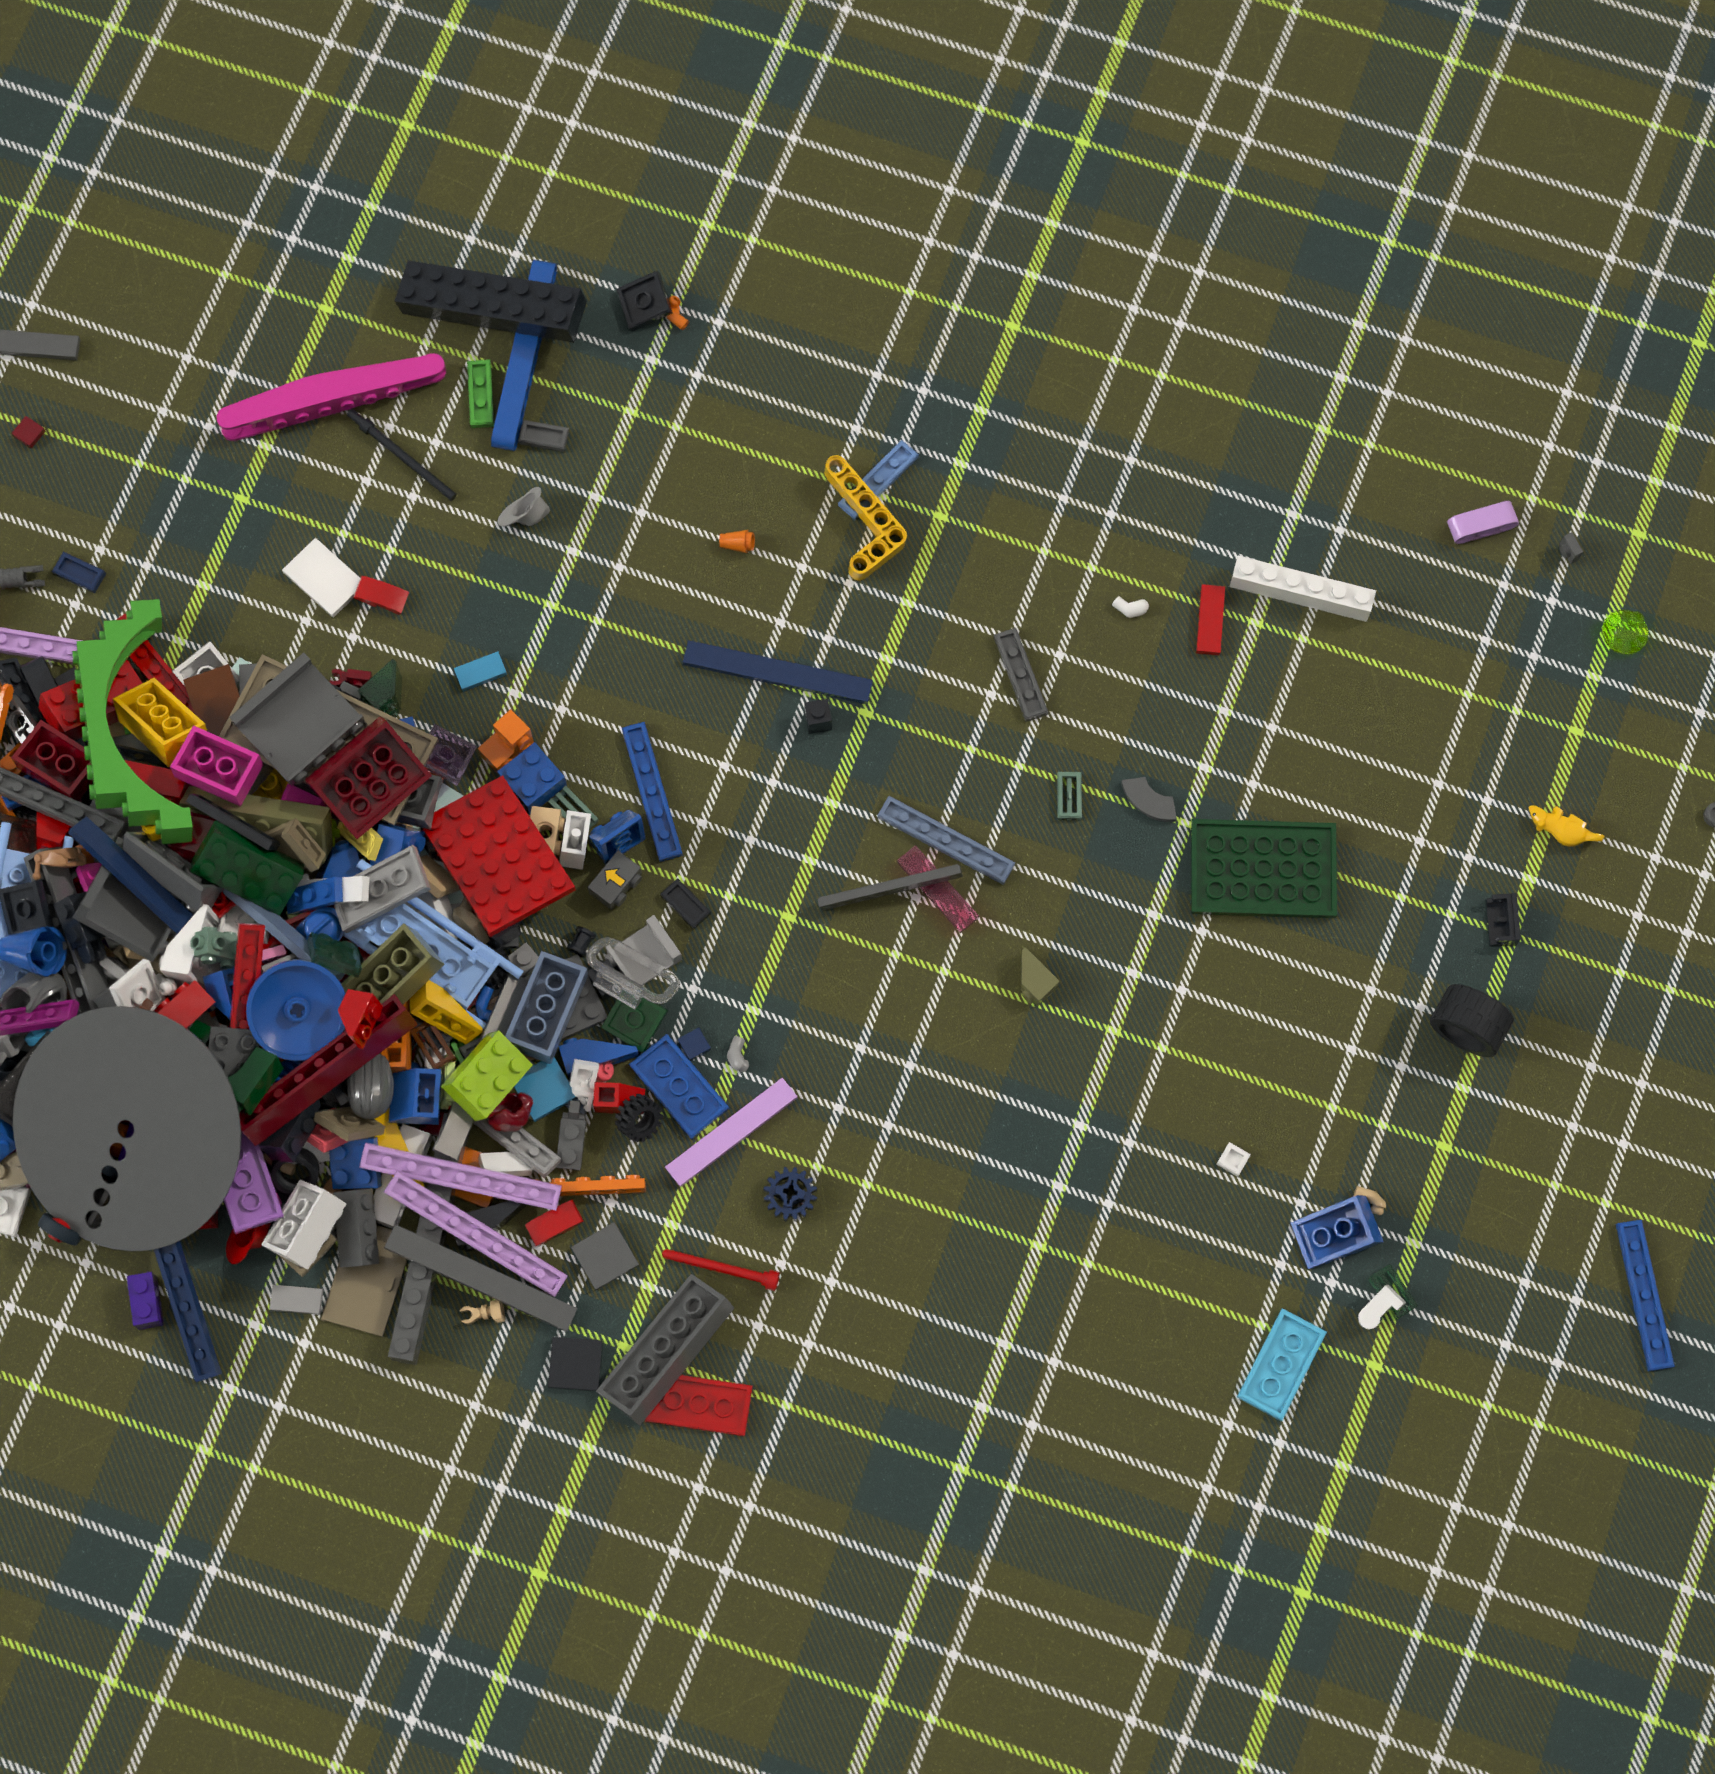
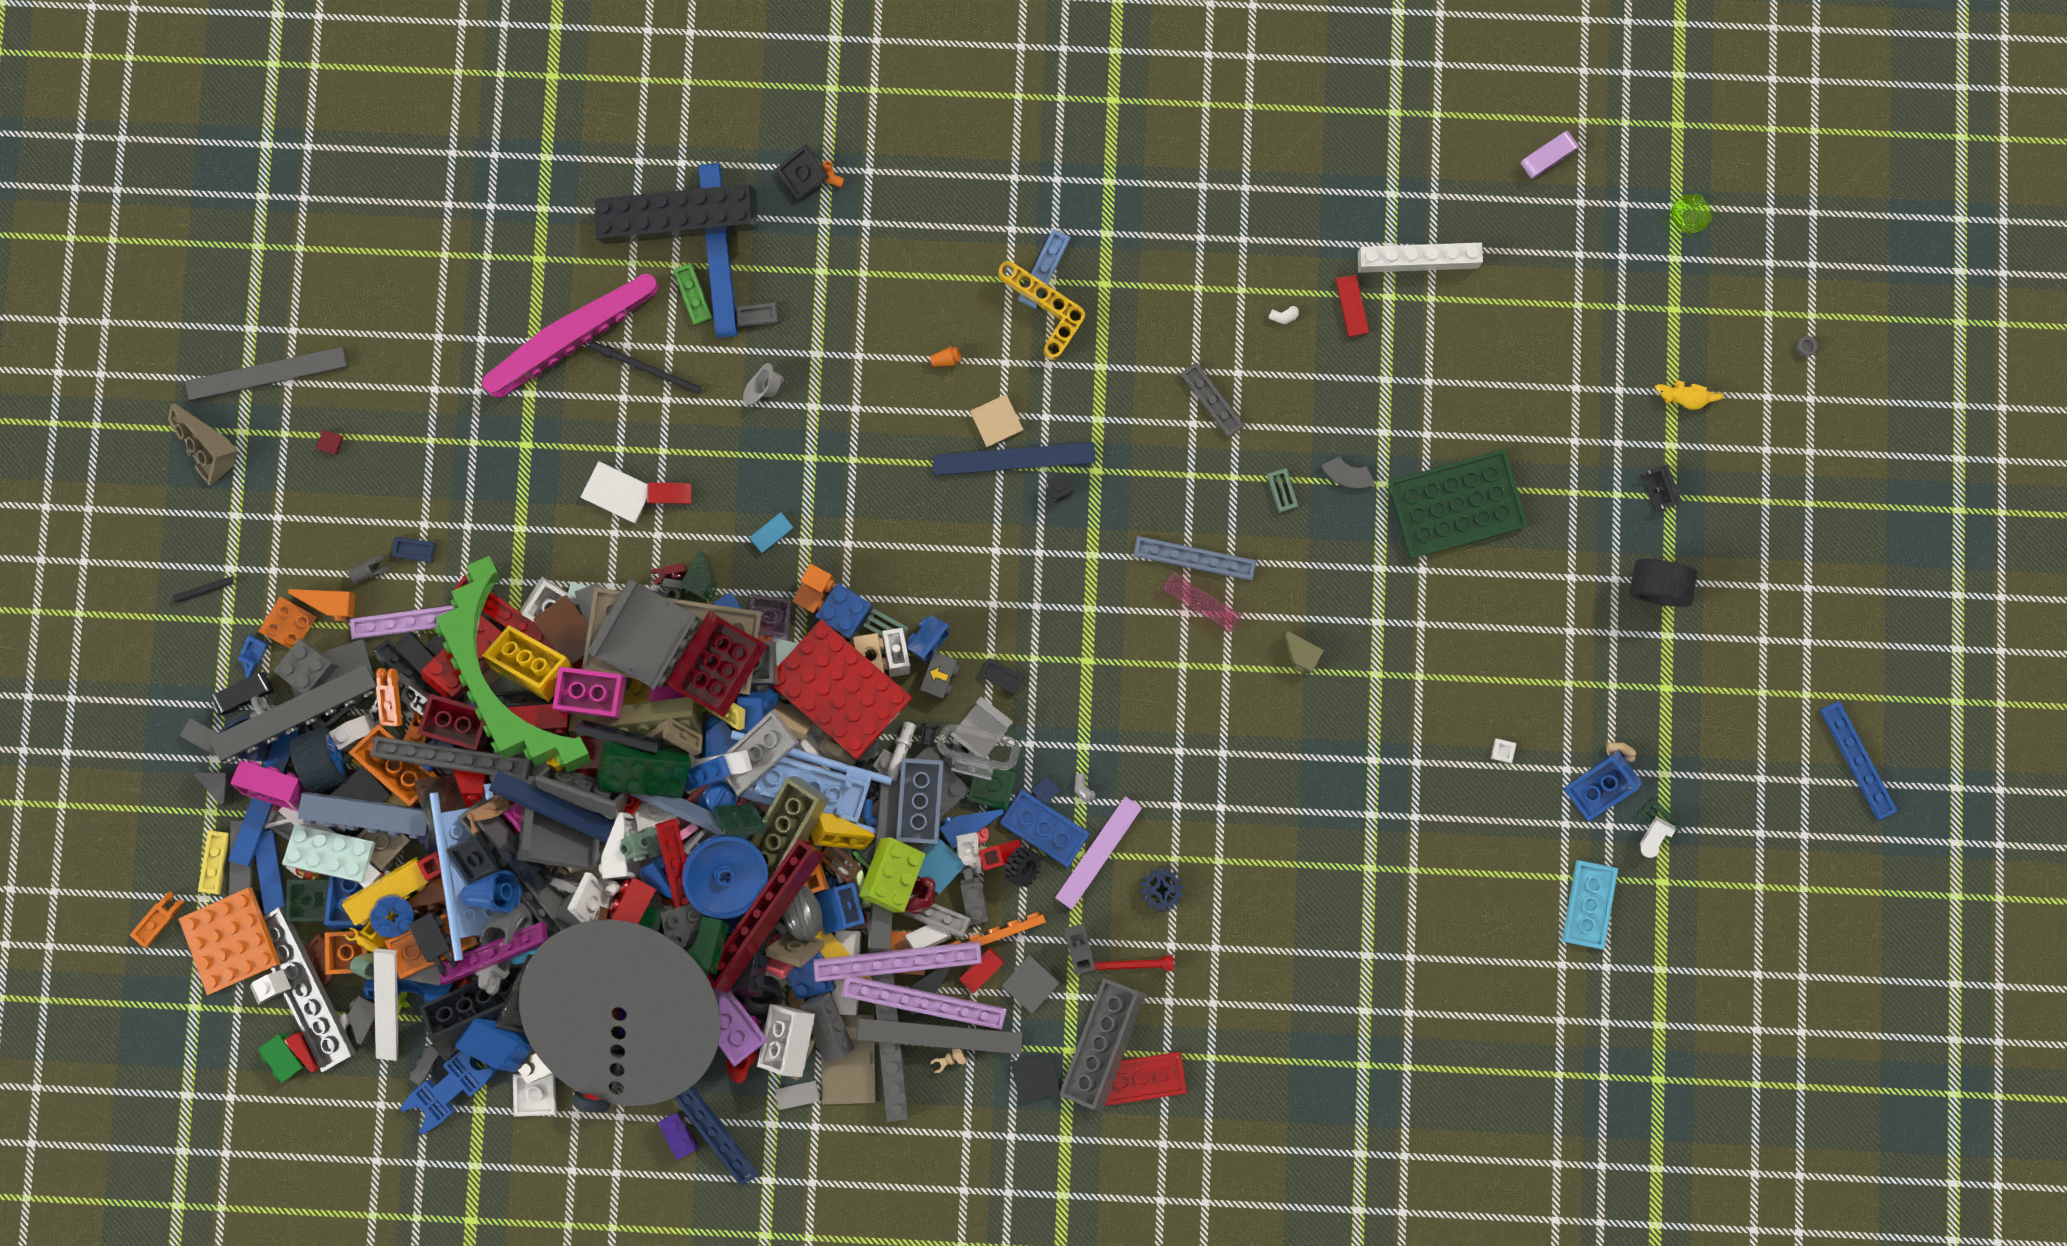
camera: 10 degrees left, 10 degrees up
(359, 1014) = (777, 867): red slope -> none
(548, 943) = (900, 751): none -> white pin
(652, 791) = (944, 591): blue tile -> none
(674, 1229) = (1079, 949): none -> dark grey brick
(771, 625) = (996, 421): none -> tan tile
(890, 887) = (1163, 614): dark grey tile -> none
(1570, 548) = (1627, 155): dark grey plate -> none

